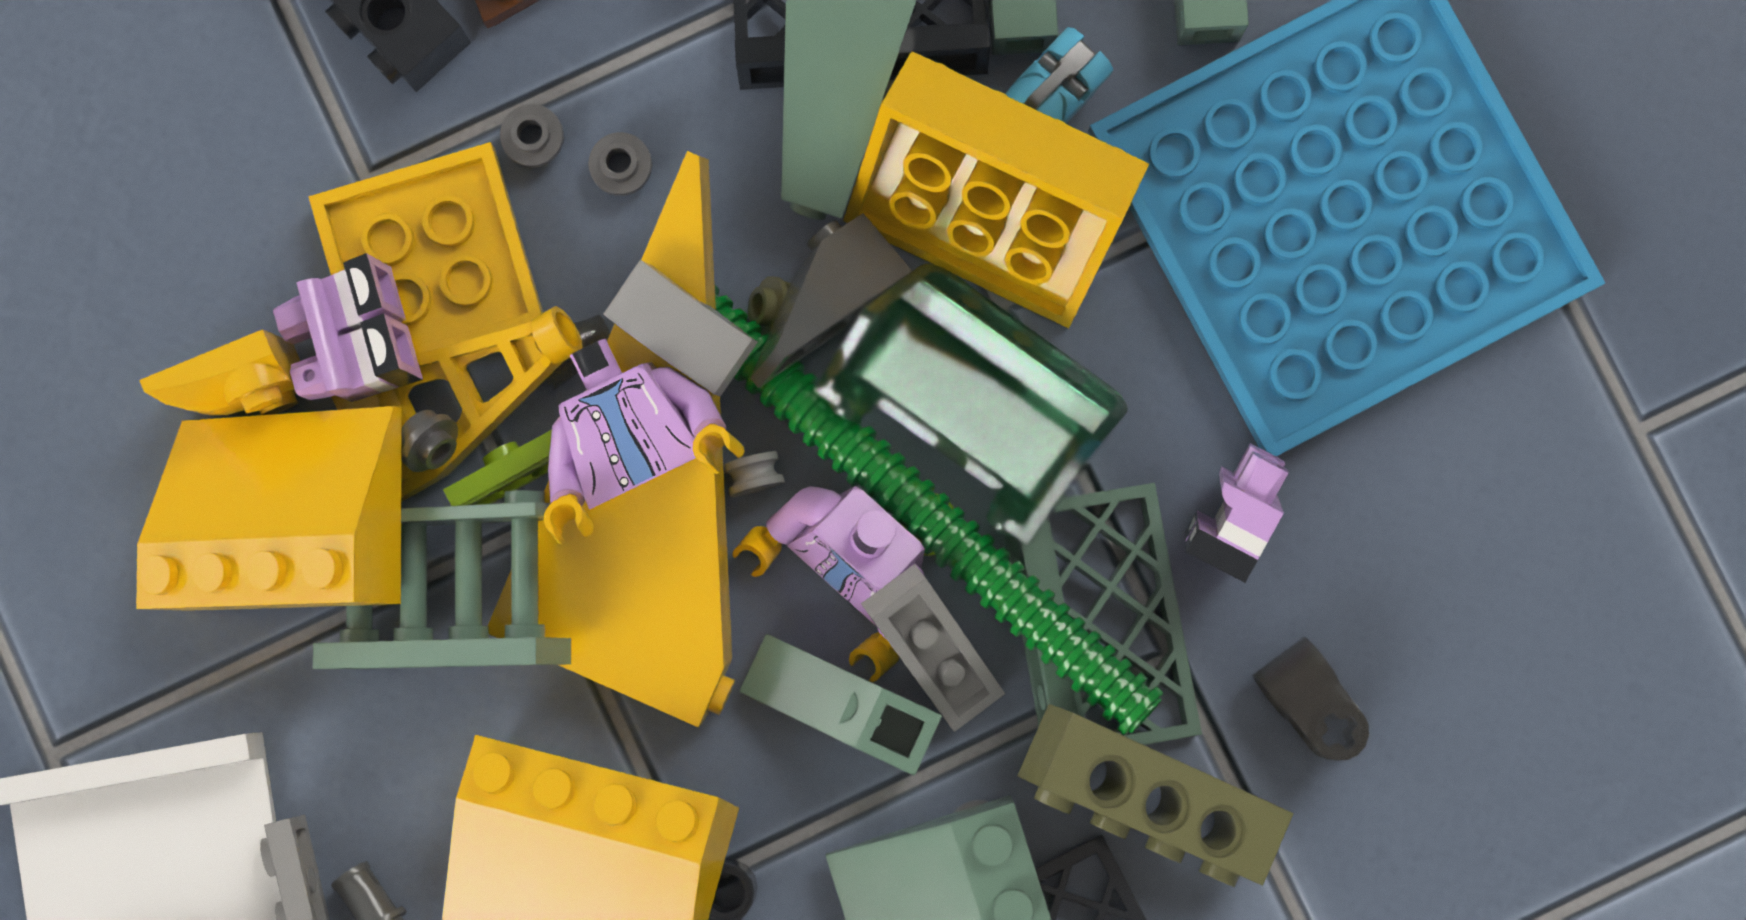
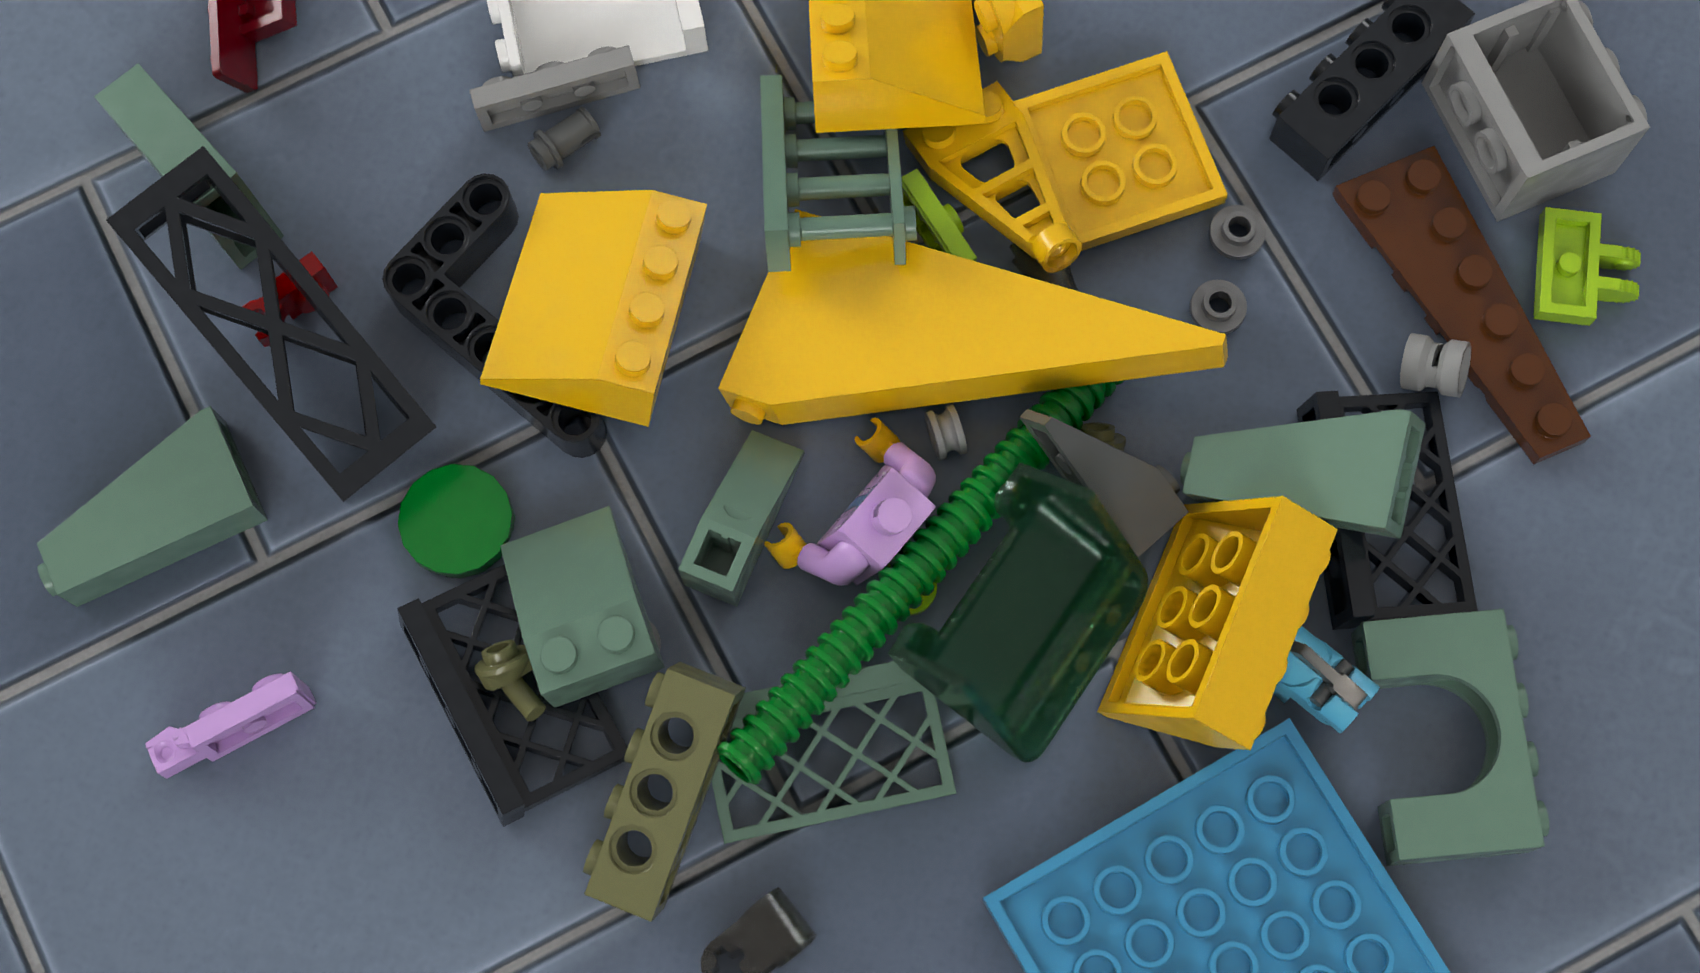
camera: 90 degrees right, 10 degrees down
(353, 331) = (1048, 85): lavender hips -> none
(428, 440) = (958, 150): flat silver plate -> none
(625, 434) = (967, 295): lavender torso -> none
(680, 328) = (1064, 336): light grey slope -> none
(933, 647) = (793, 584): light grey plate -> none
(1245, 518) = (925, 863): lavender hips -> none

